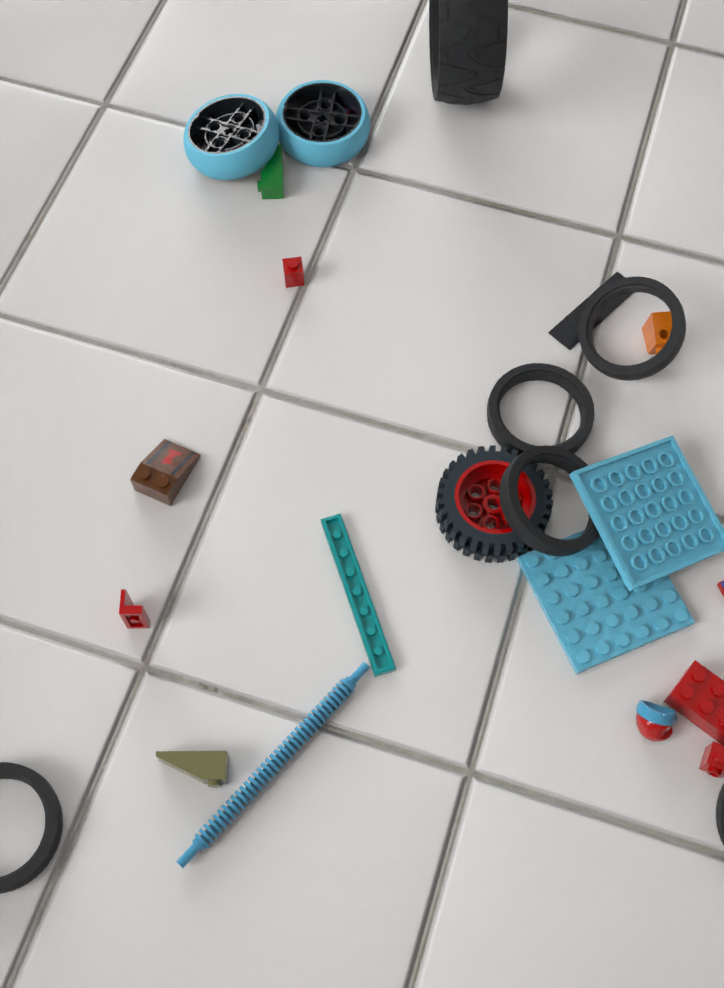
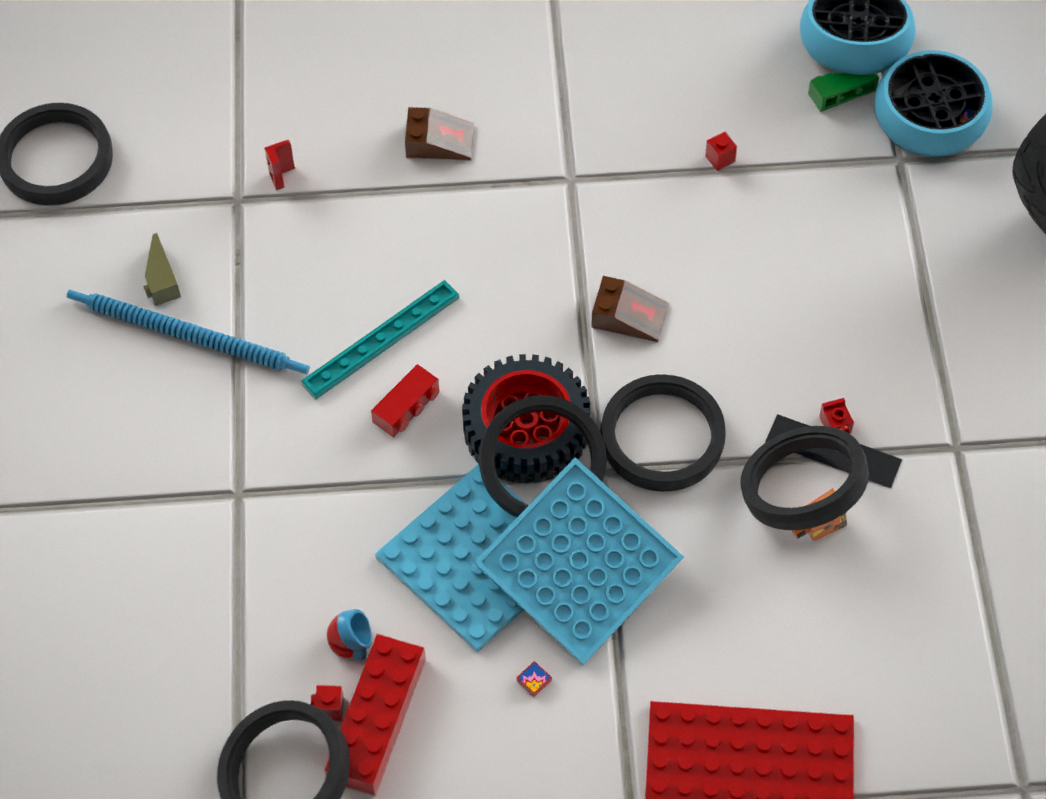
camera: 70 degrees right, 5 degrees down
(413, 395) = (628, 310): none -> reddish brown slope
(434, 593) = (405, 401): none -> red brick
(573, 295) = (836, 415): none -> red brick

